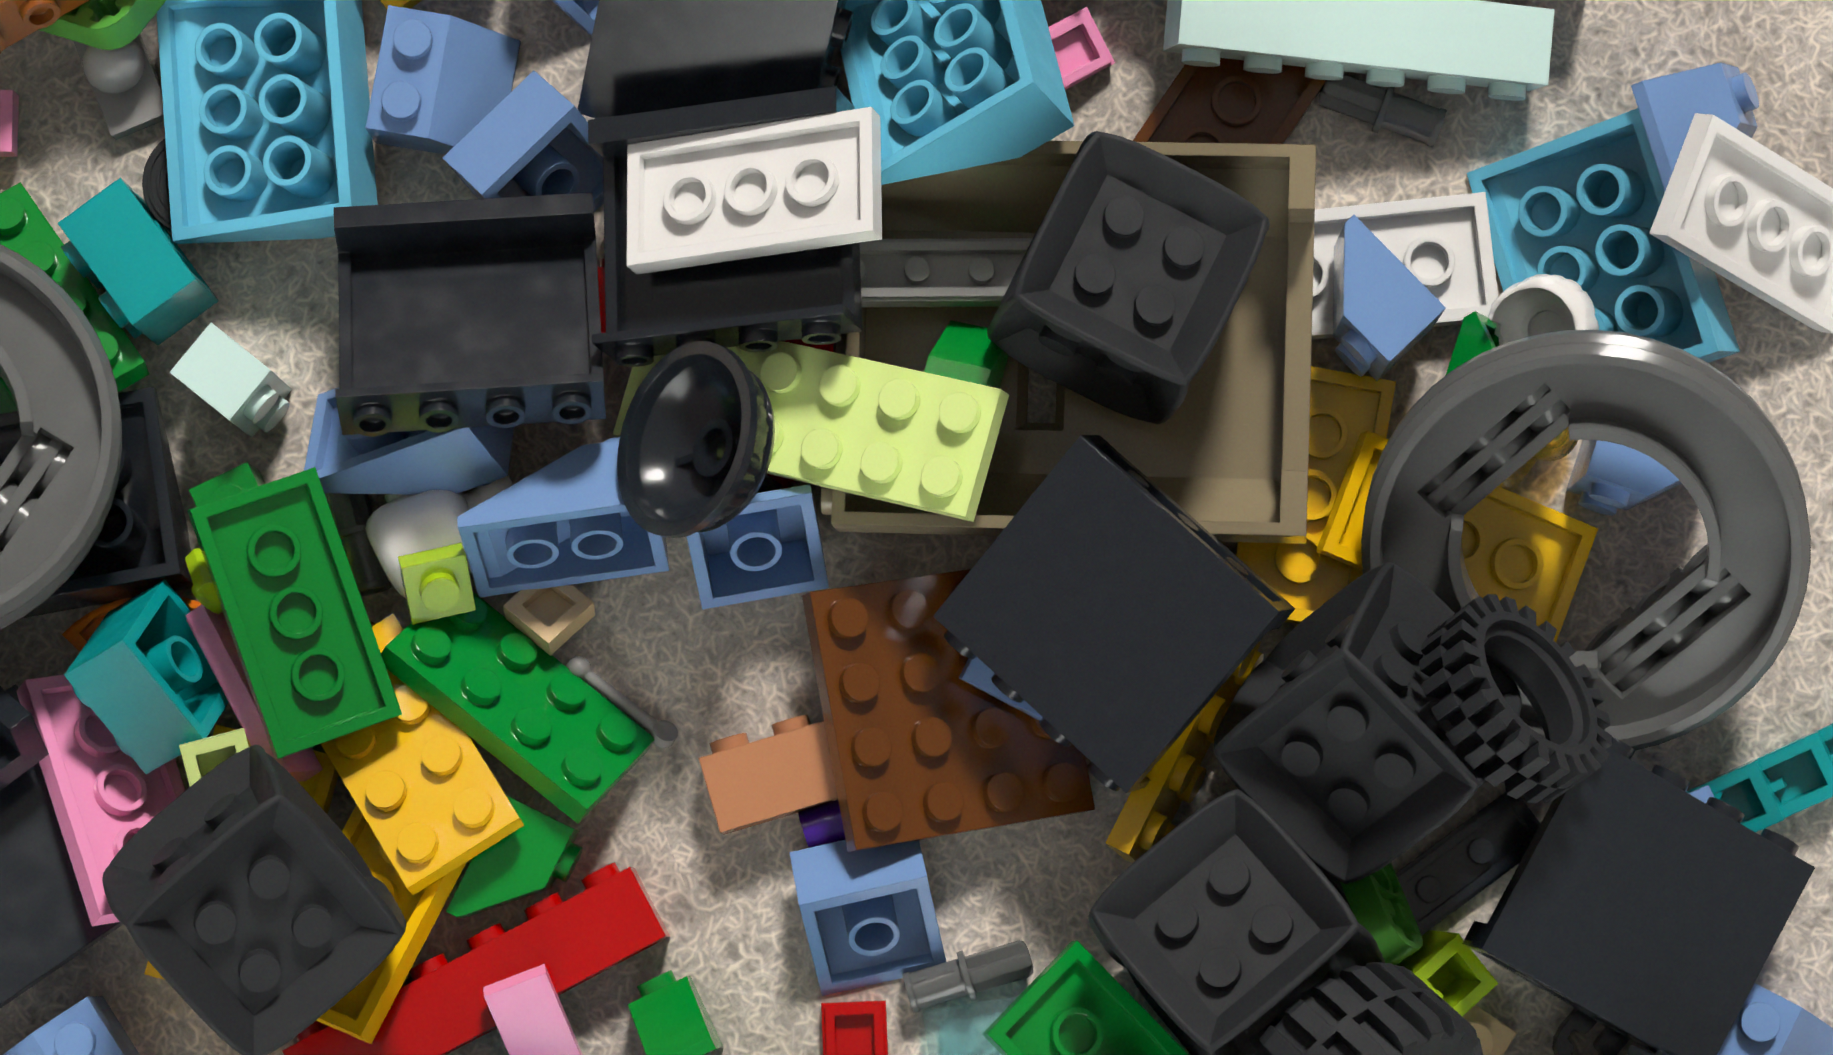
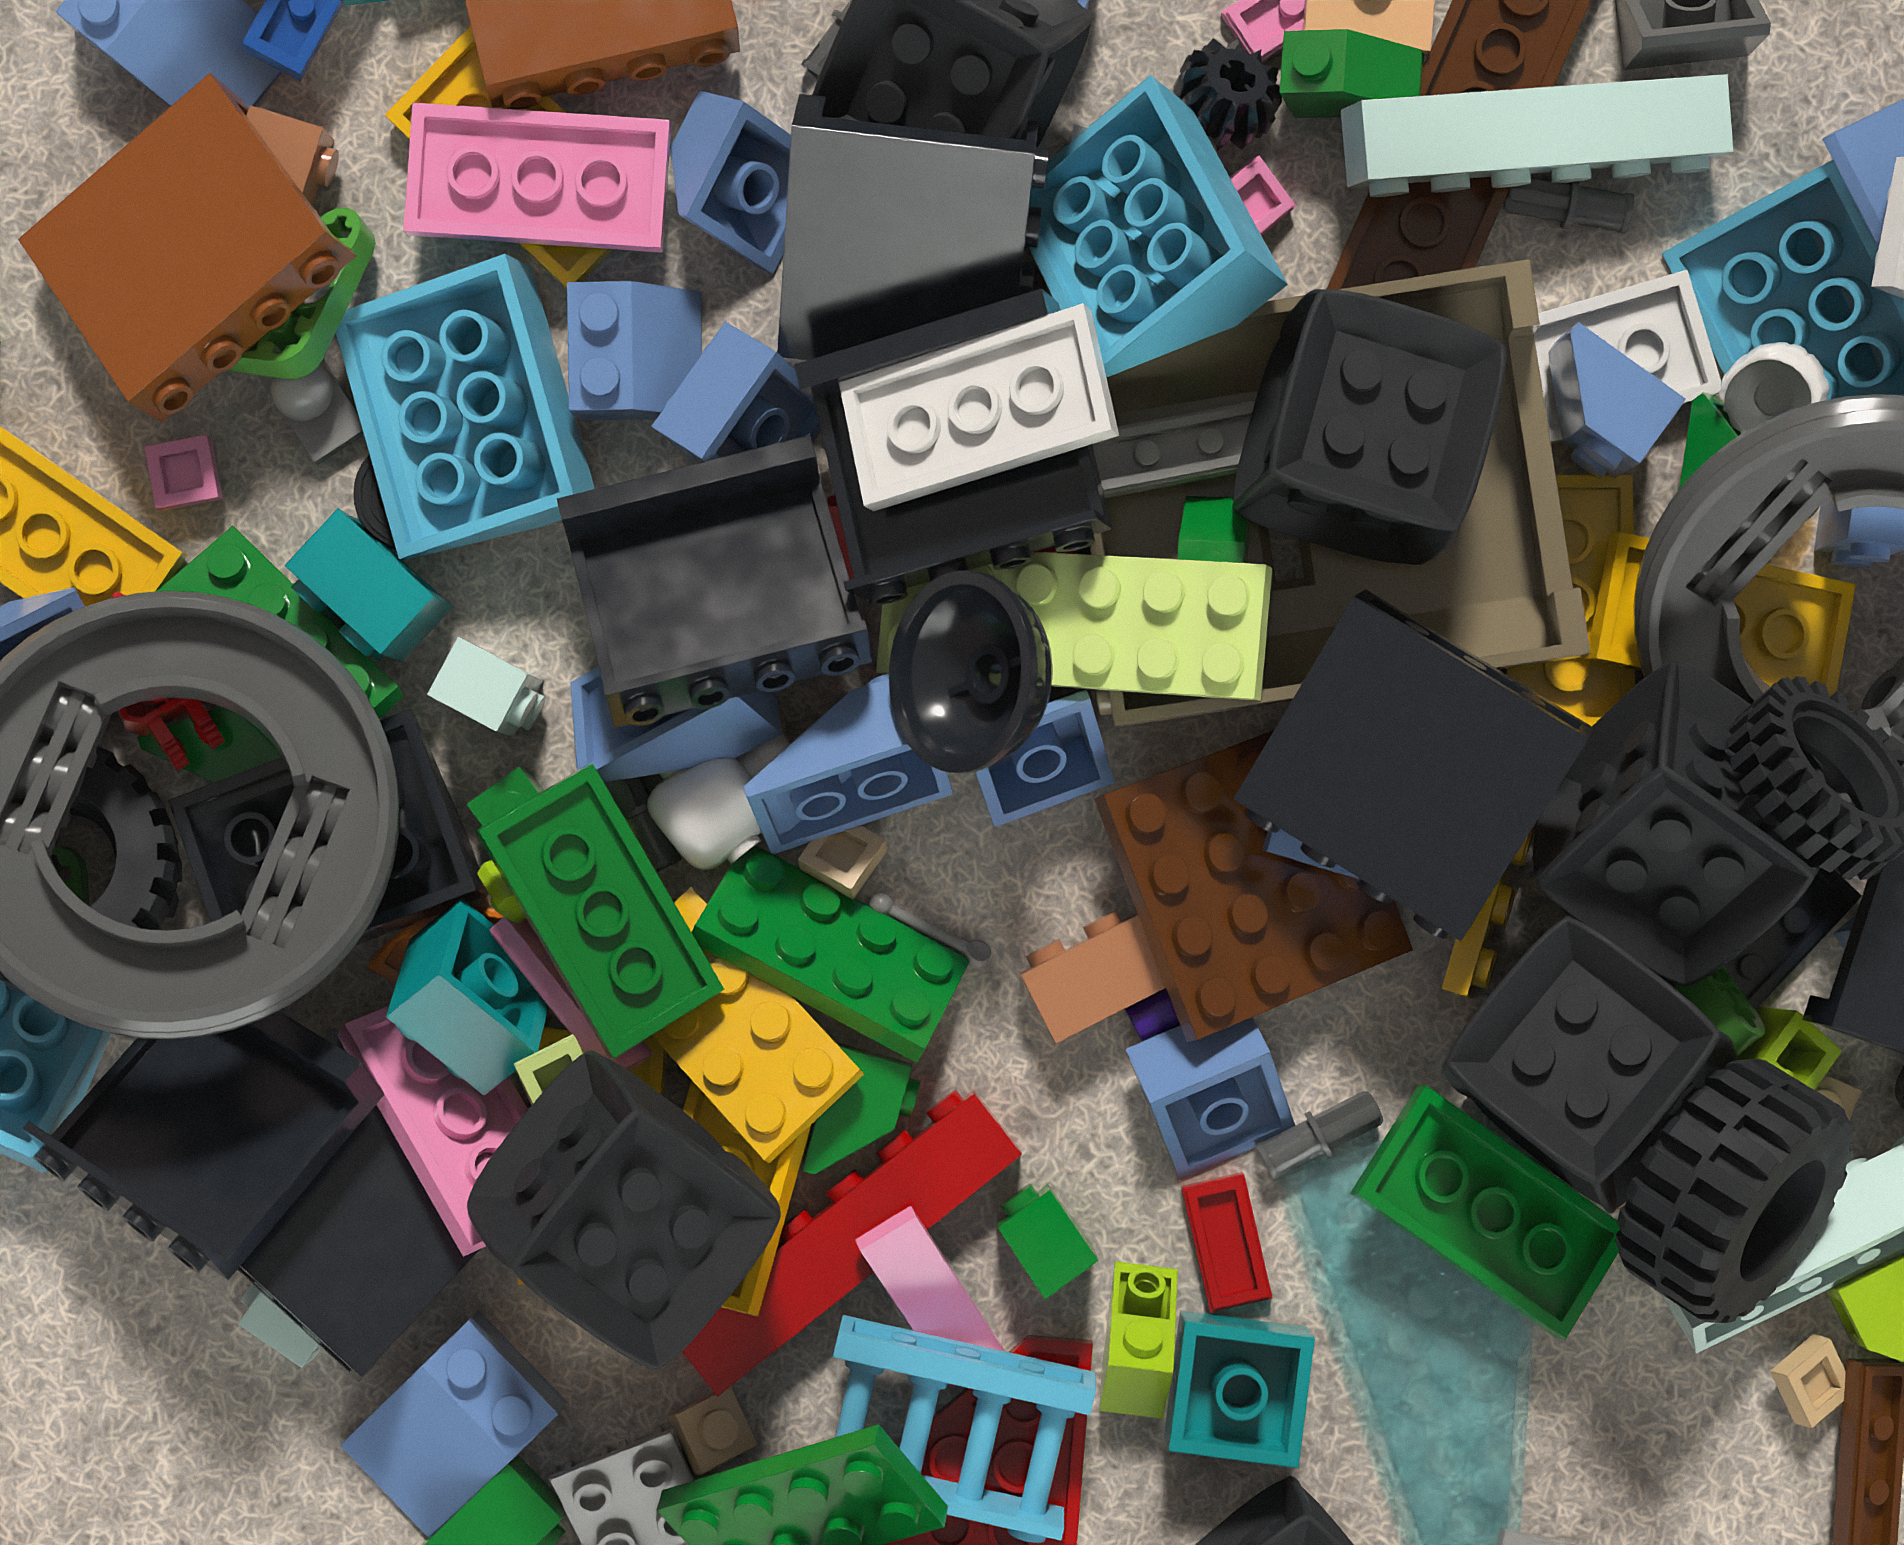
camera: 15 degrees left, 5 degrees up
(436, 583) = (731, 852): lime plate -> none

